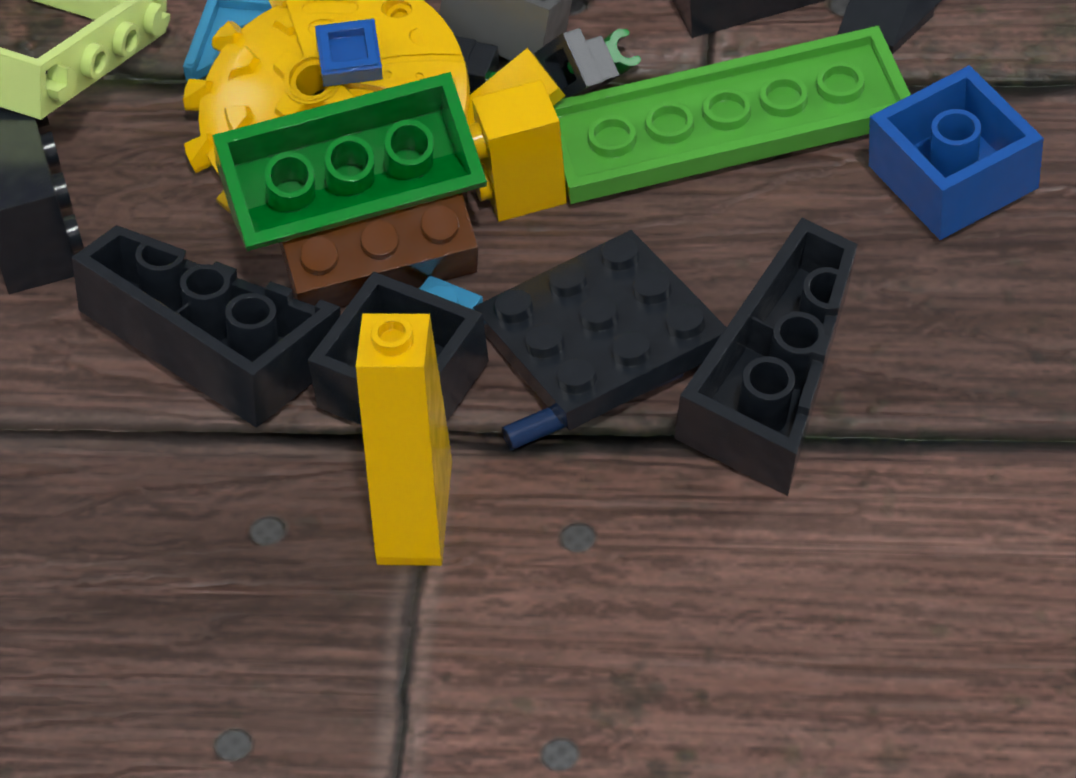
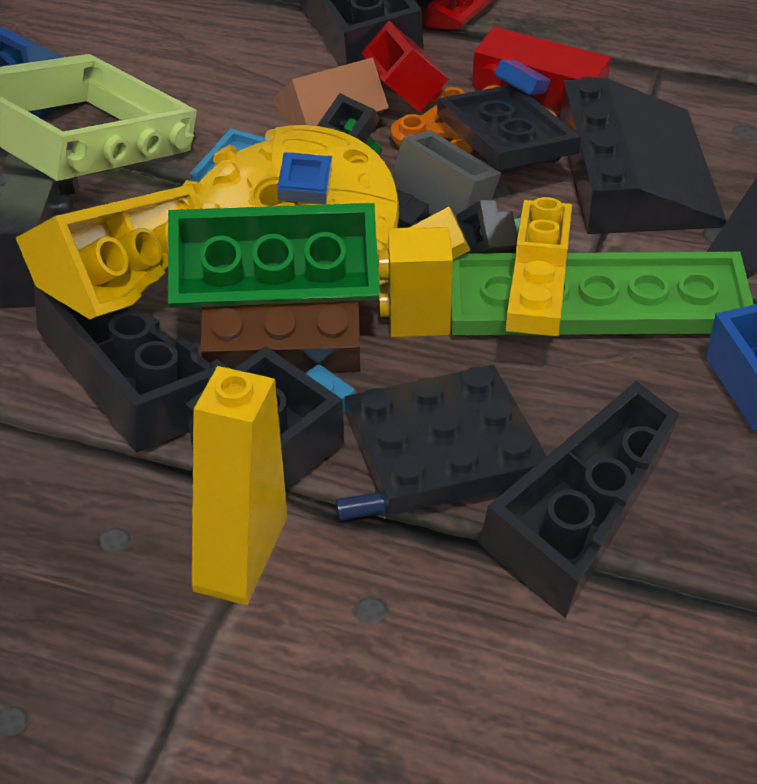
camera: 10 degrees right, 5 degrees down
(151, 201) = (104, 253): none -> yellow wedge
(655, 101) = (539, 268): none -> yellow slope

